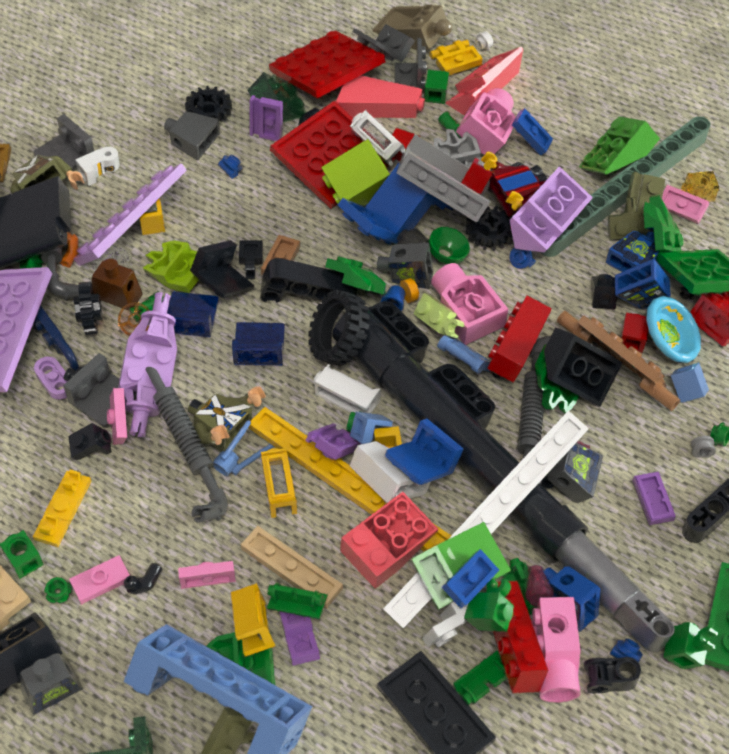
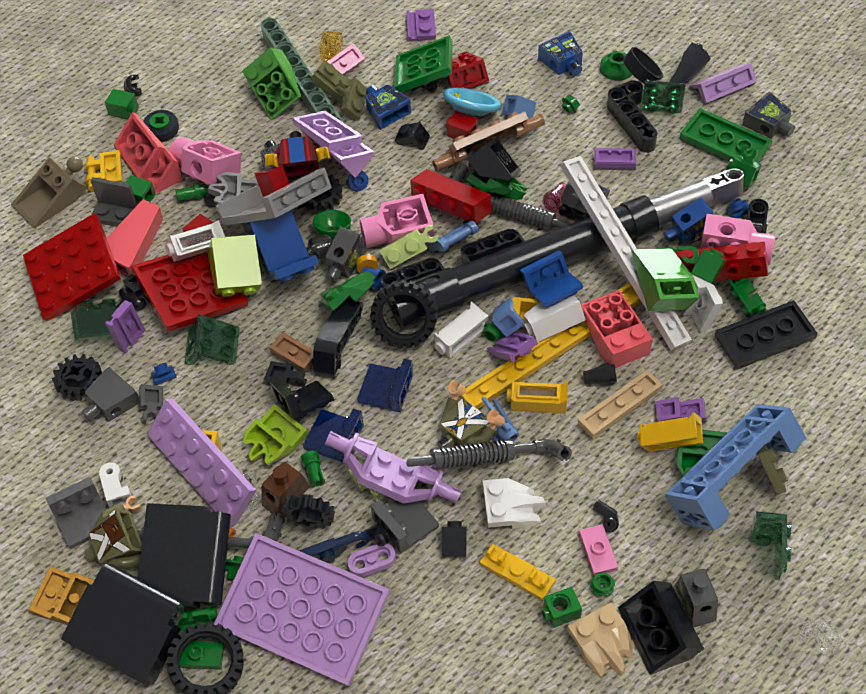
camera: 70 degrees left, 0 degrees up
(117, 417) = (438, 506): bright pink plate -> none
(134, 313) = (334, 476): clear orange piece -> none
(139, 483) = (511, 504): none -> white plate
(196, 163) = (151, 400): none -> dark grey plate
(206, 574) = (614, 464): bright pink plate -> none
(275, 191) = (212, 340): none -> clear green bracket
(296, 601) = (657, 401): green hinge -> none
(326, 541) = (603, 375): none -> black cone
(389, 41) = (69, 210): dark grey bracket -> none
(470, 578) = (685, 266): blue plate -> none
(484, 40) = (94, 145): white plate -> none
(529, 81) = (162, 124): none -> black wheel
(532, 131) = (227, 135): blue plate -> none
(537, 585) = (685, 238): clear pink cone -> none
(542, 44) = (121, 104): none -> green brick
(568, 43) = (132, 88): none -> black arm
(642, 284) = (426, 103): blue torso -> none
(659, 219) = (371, 75): green plate -> none
(703, 446) = (579, 117): light grey bush -> none

